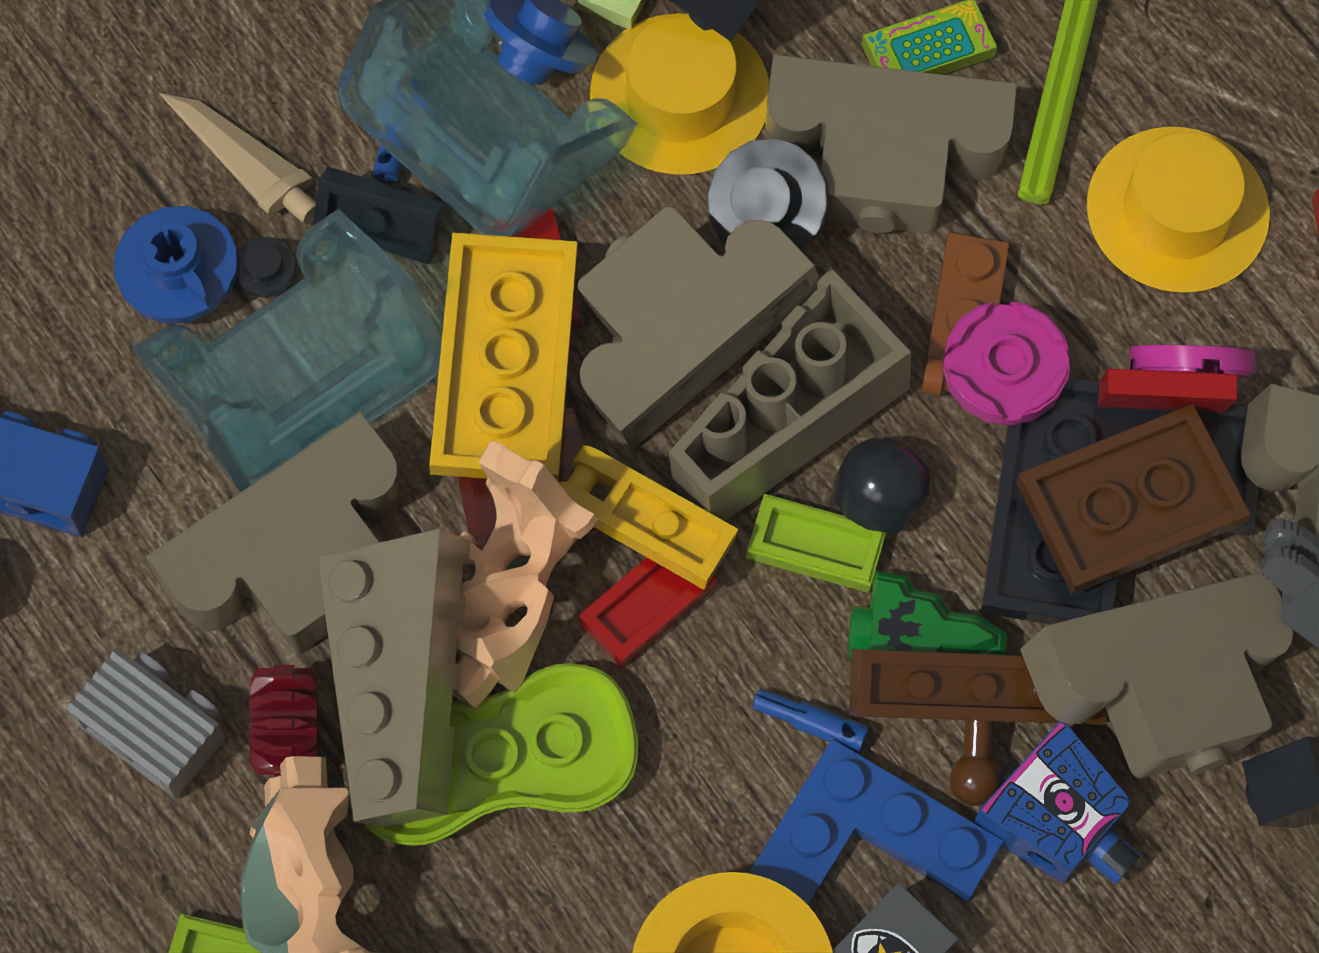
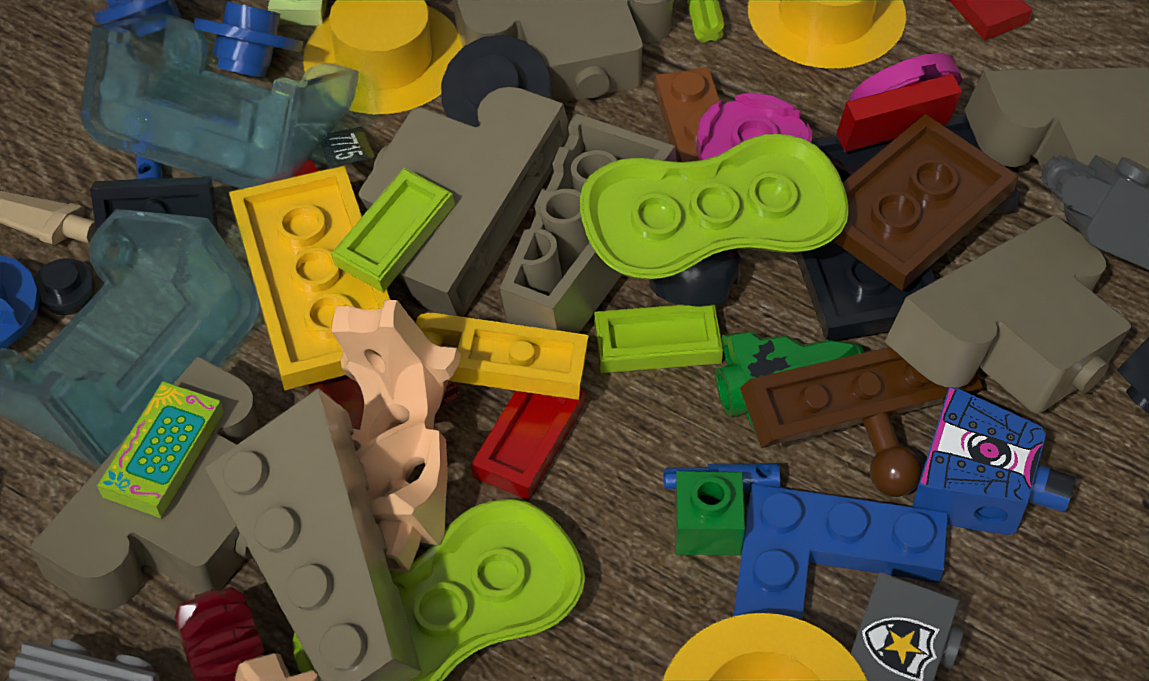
camera: 20 degrees left, 15 degrees down
(293, 504) = (161, 449): none -> tile
(592, 210) = (346, 147): none -> black sticker
(593, 344) = (393, 229): none -> lime tile
(771, 772) = (709, 513): none -> green plate
(966, 447) = (669, 215): none -> lime plate

